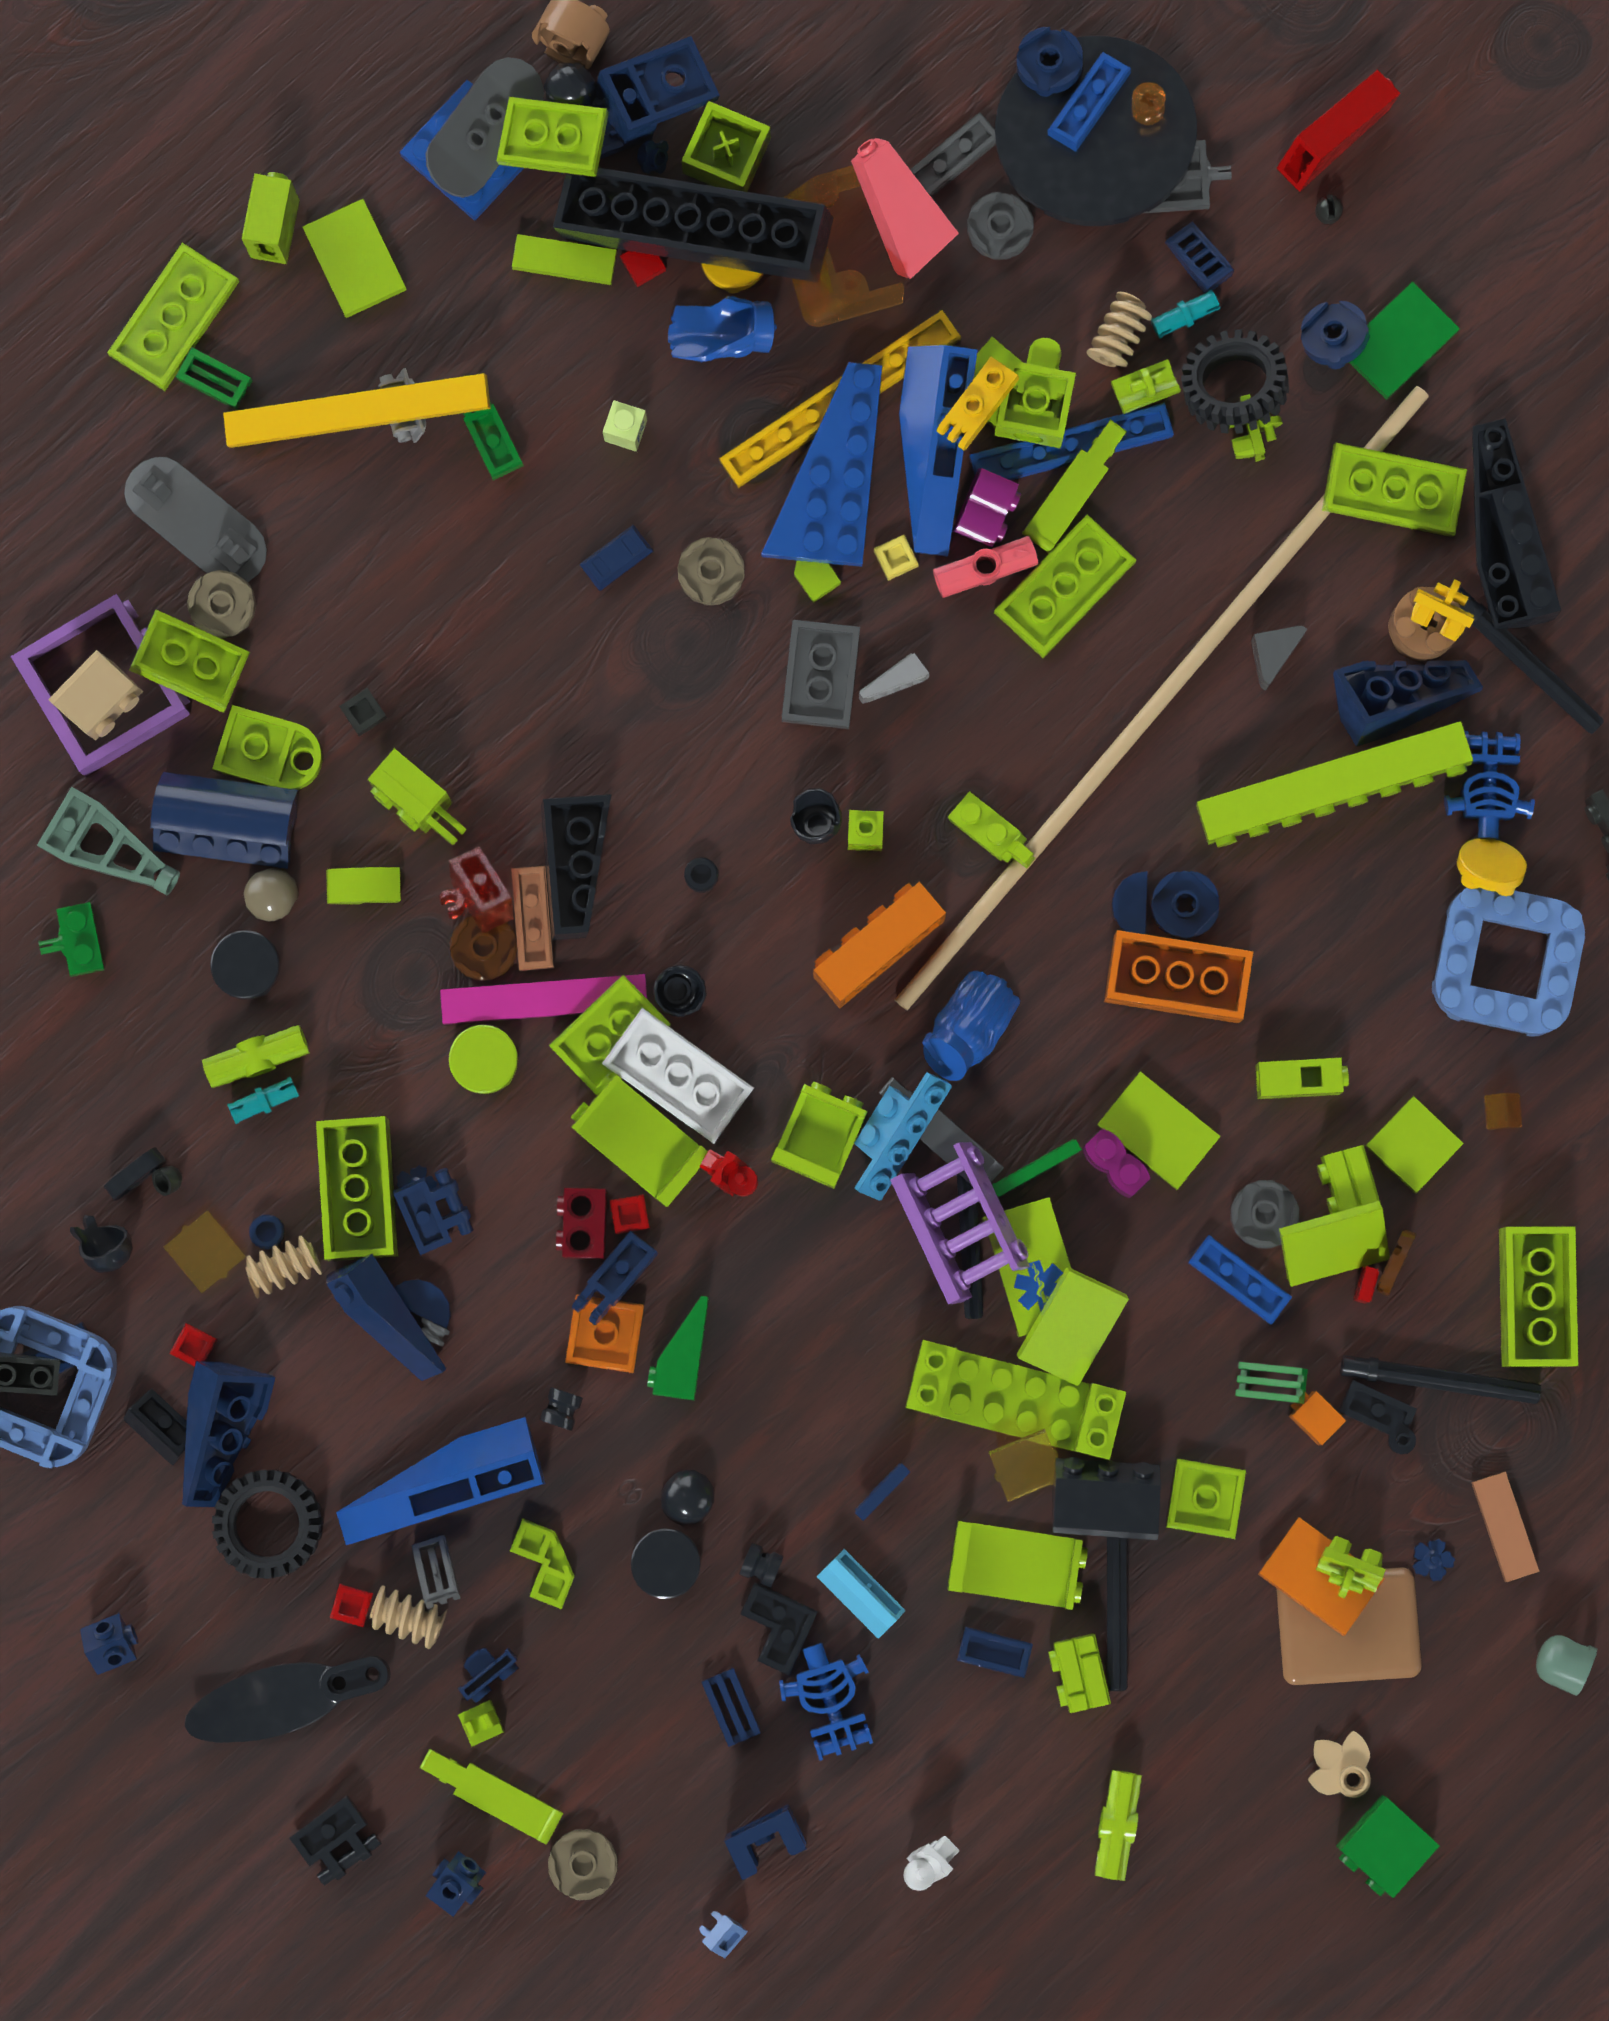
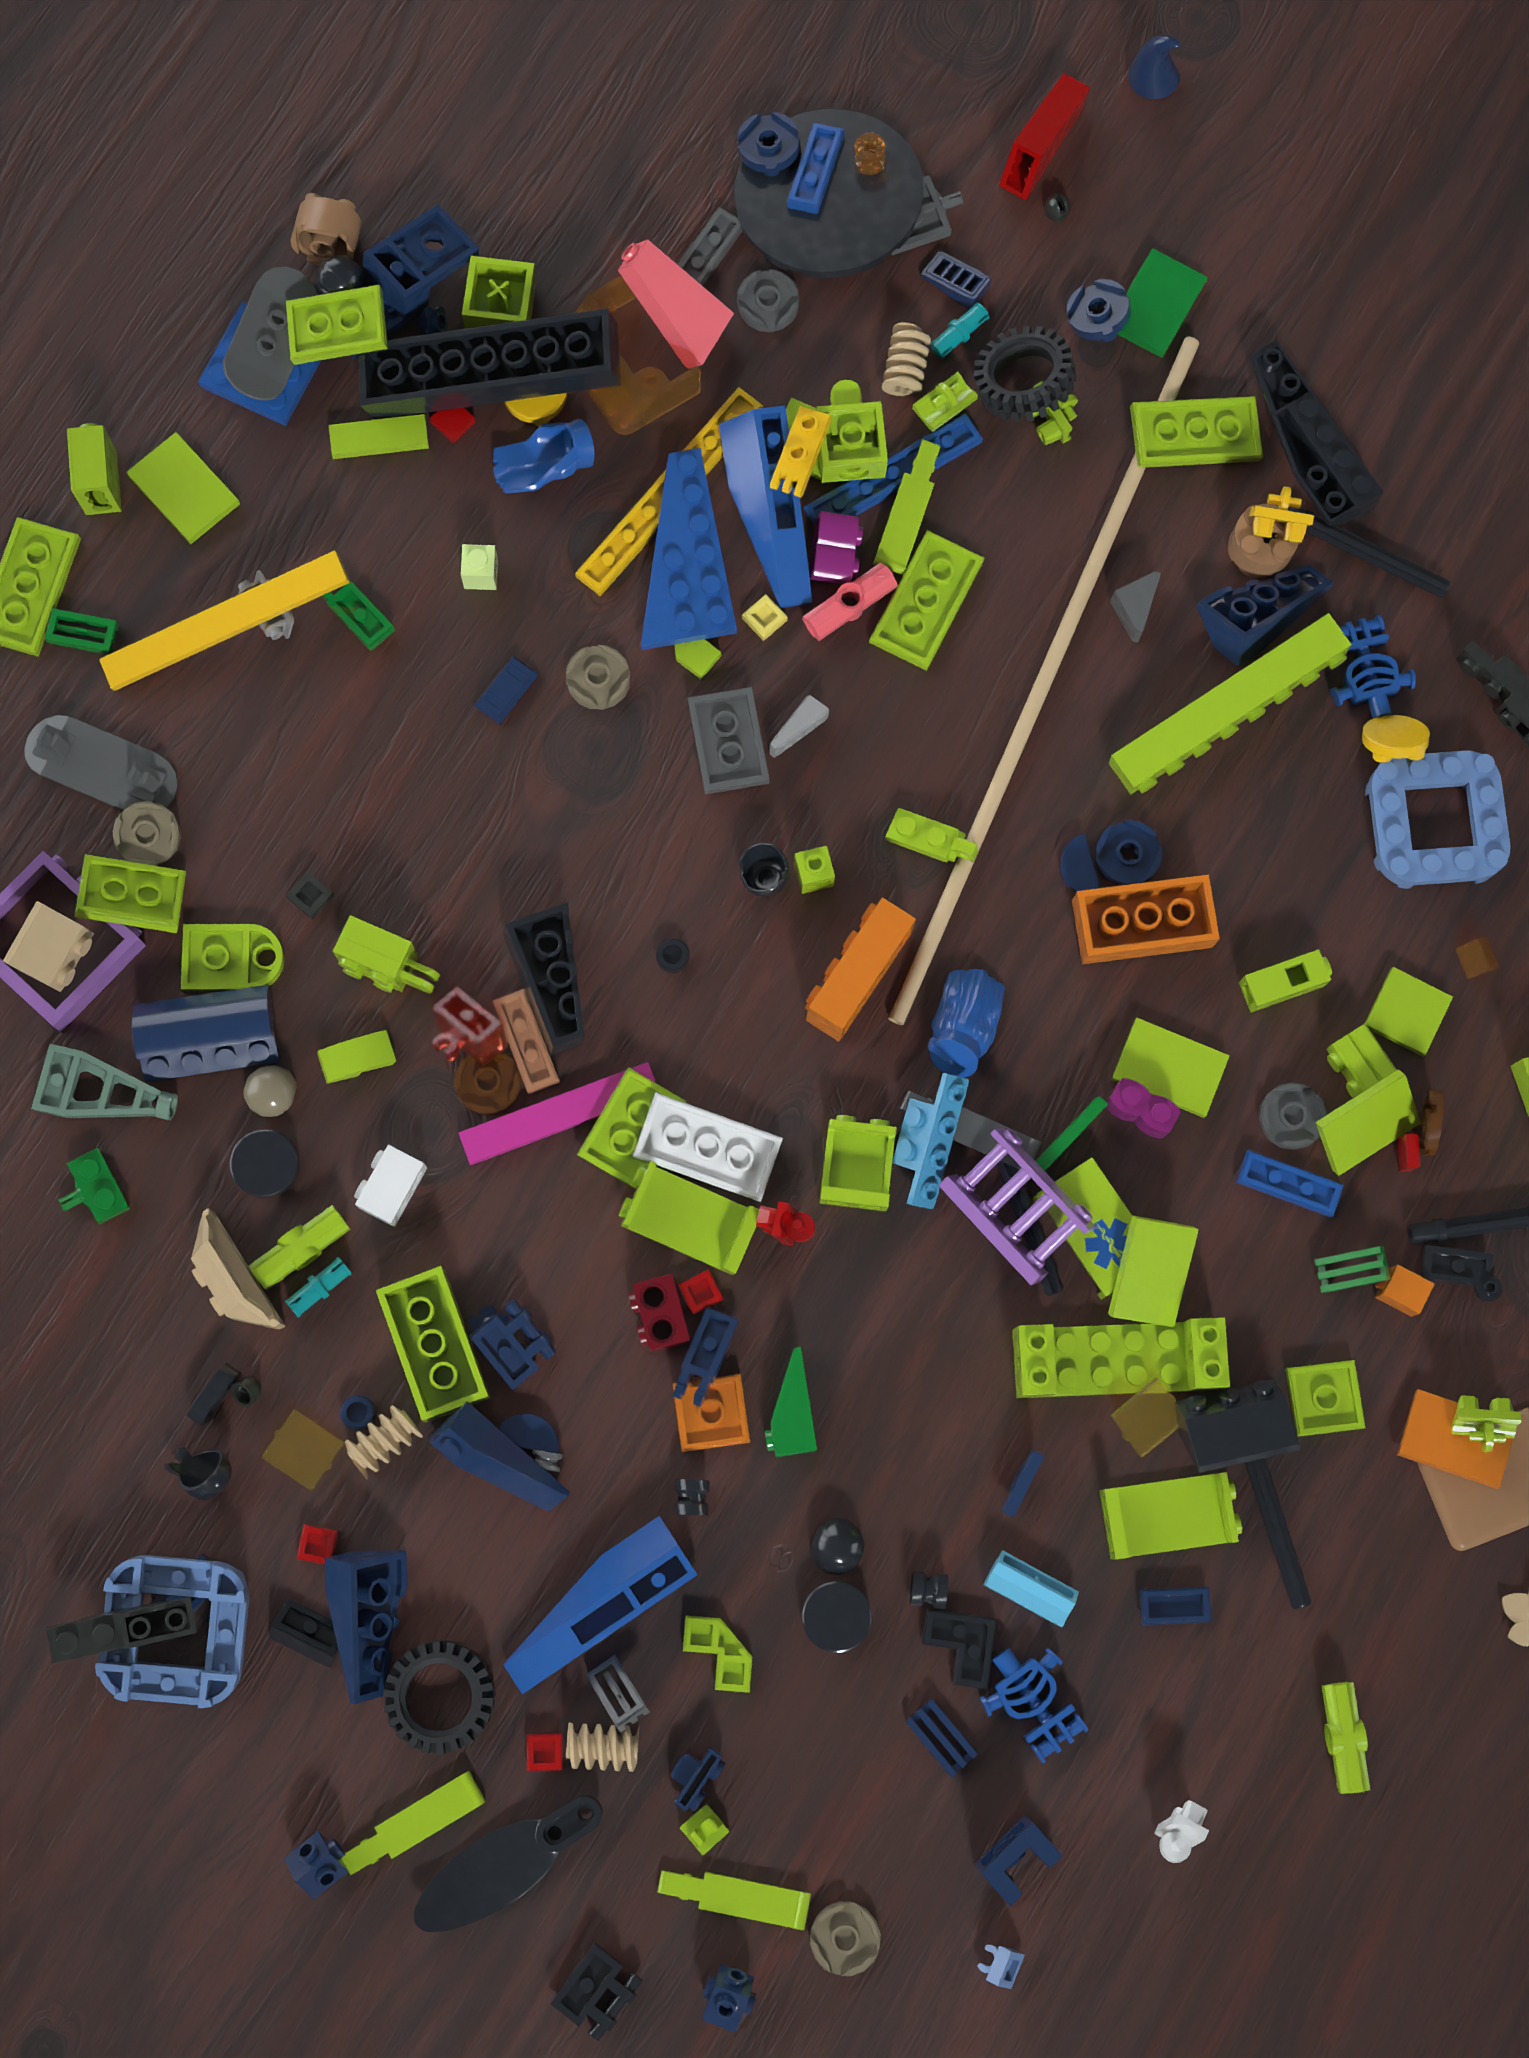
camera: 25 degrees left, 5 degrees down
(180, 1064) = (229, 1277): none -> tan wedge
(214, 1634) = (417, 1822): none -> lime piece
(359, 1021) = (389, 1185): none -> white brick
(483, 1059) = (518, 1186): lime tile -> none
(679, 990) = (686, 1067): black hair -> none
(1080, 1673) = (1263, 1600): lime brick -> none
(1476, 91) = (1153, 70): none -> dark blue hat

